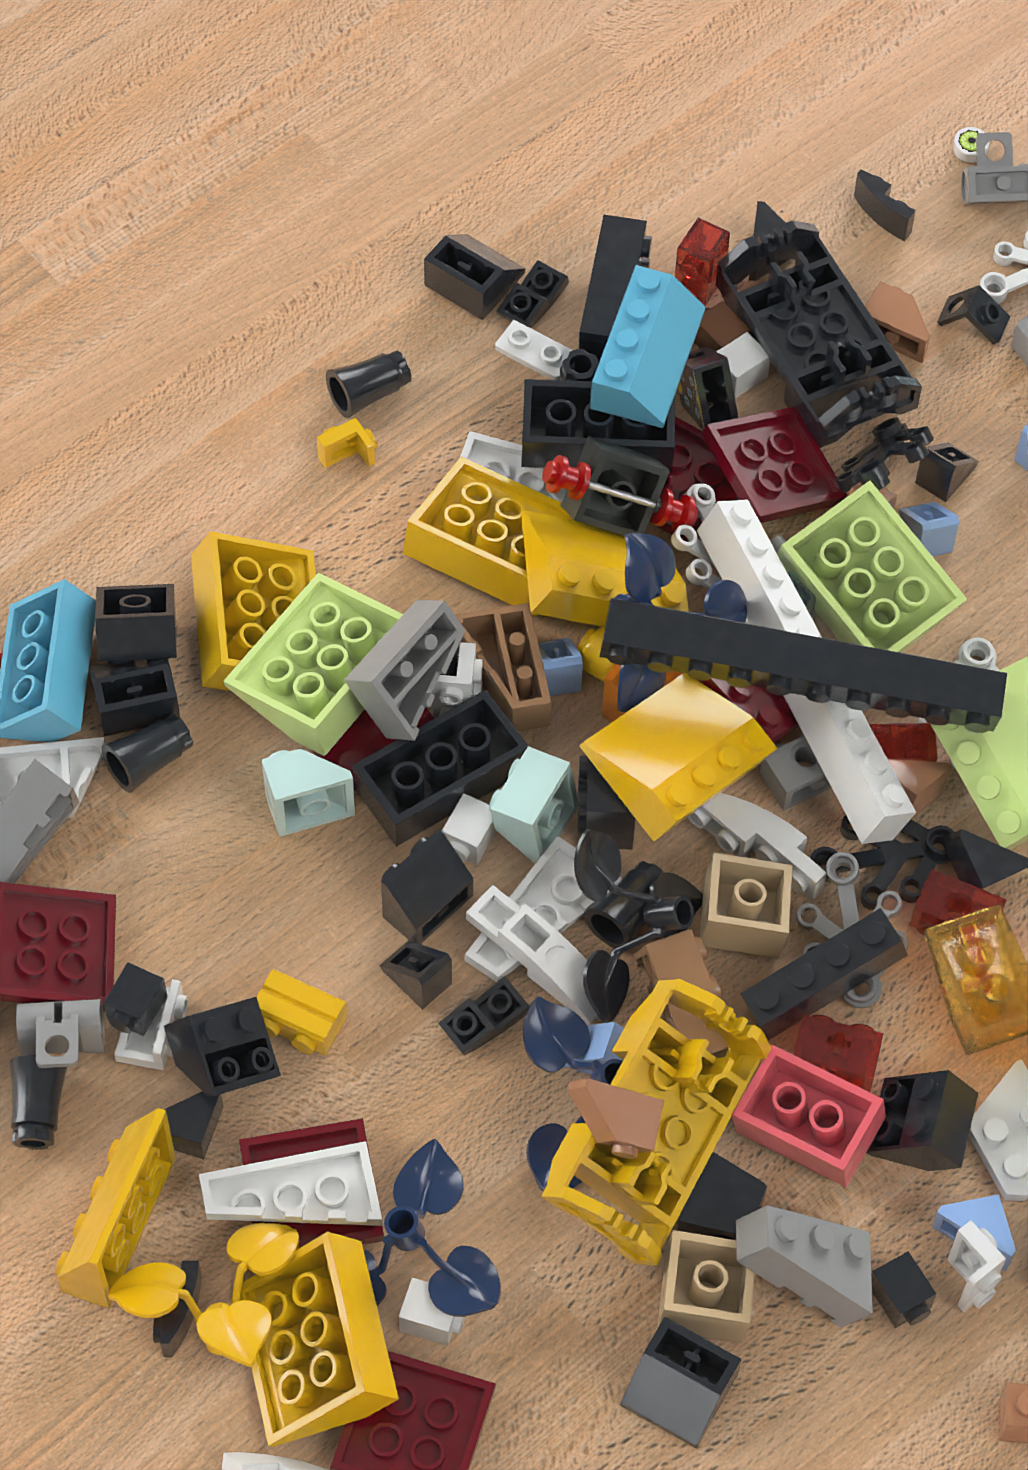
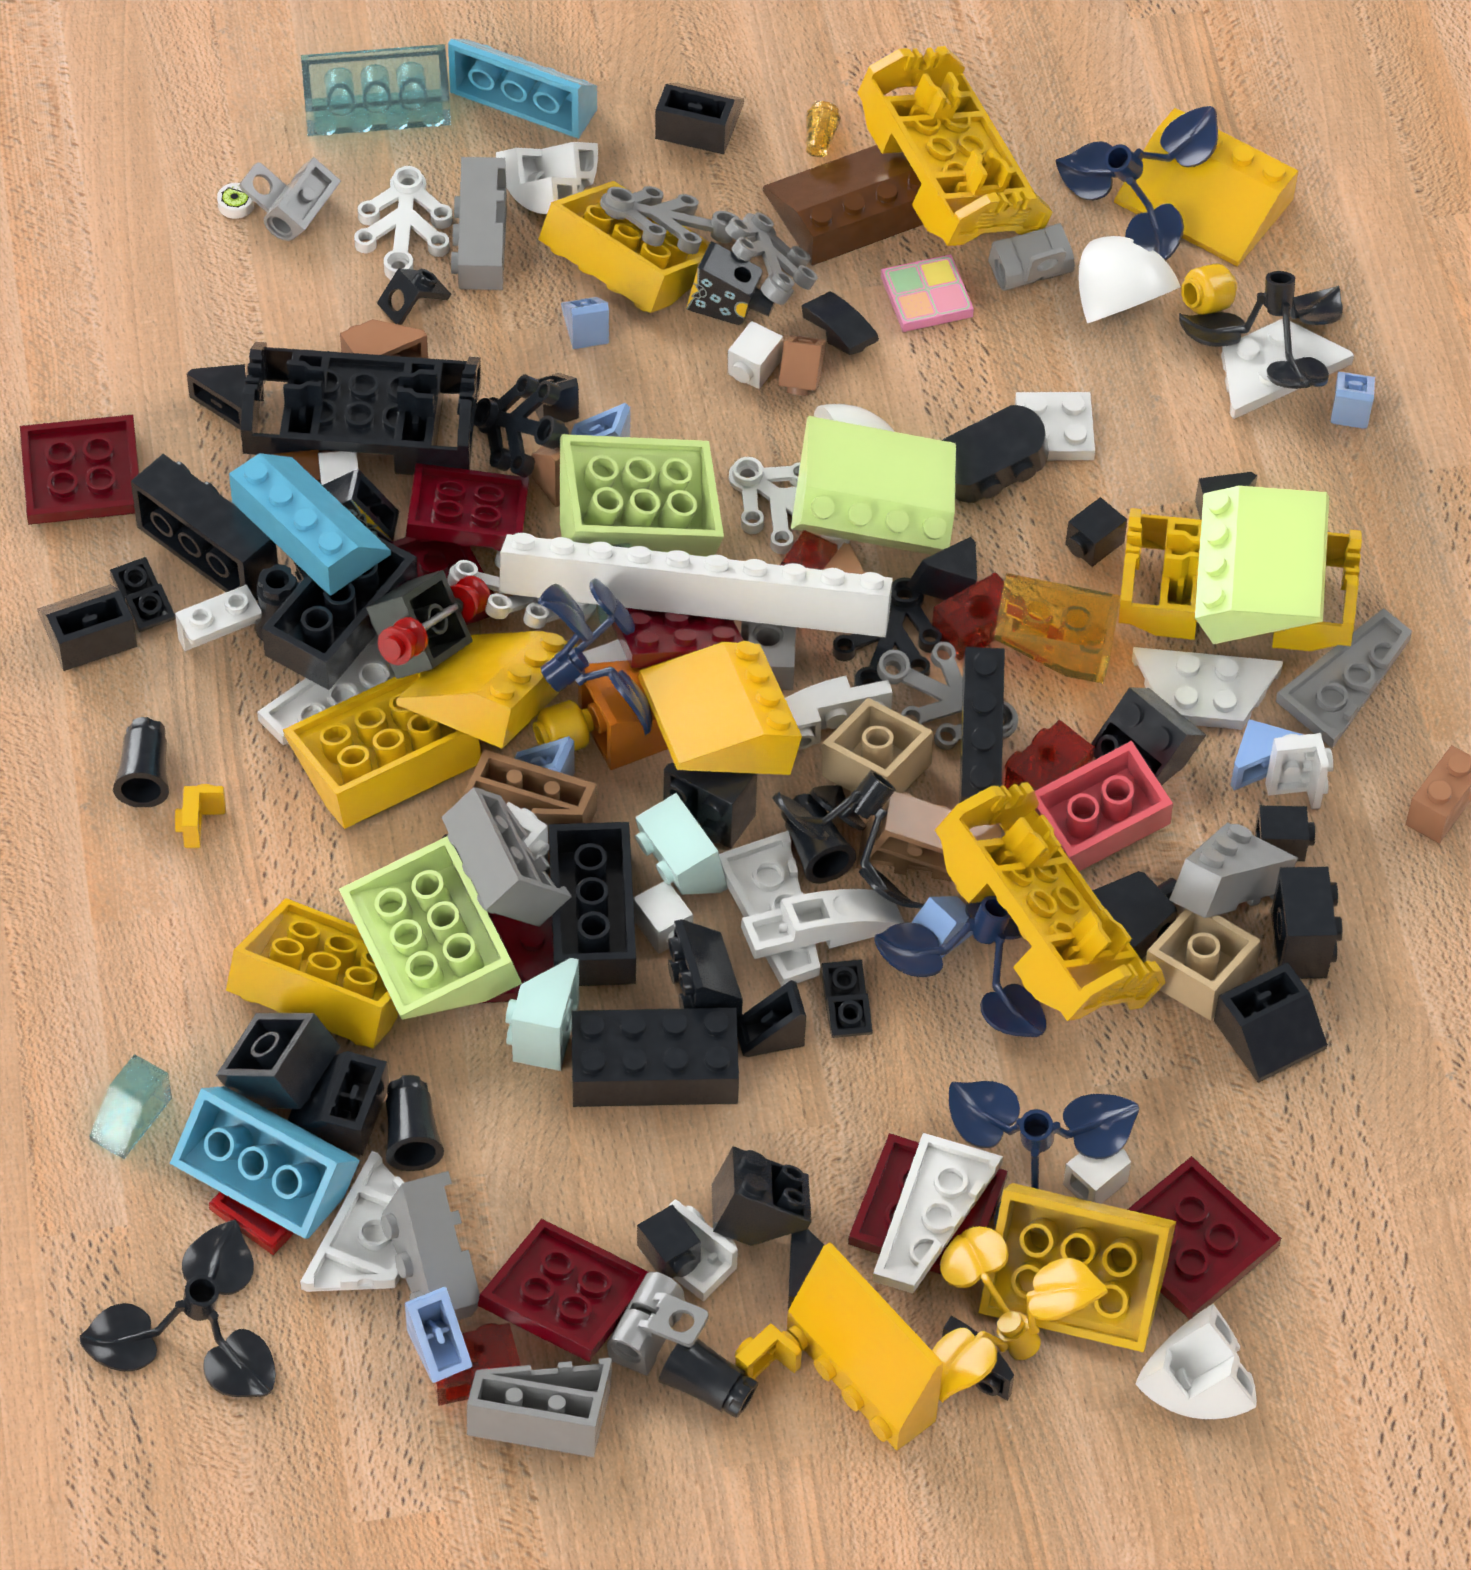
camera: 60 degrees left, 5 degrees down
(45, 550) = (131, 1106): none -> clear light blue slope
(84, 1128) = (770, 1344): none -> yellow bracket
(301, 1013) = (759, 1125): yellow brick -> none
(324, 896) = (654, 1057): none -> black brick
(618, 1116) = (1051, 913): nougat slope -> none
(621, 180) = (79, 468): none -> dark red plate
(699, 256) = (217, 444): clear red brick -> none
(803, 665) = (718, 571): black brick -> none
(804, 1355) = (1305, 920): none -> black brick
(874, 198) = (242, 295): black slope -> none

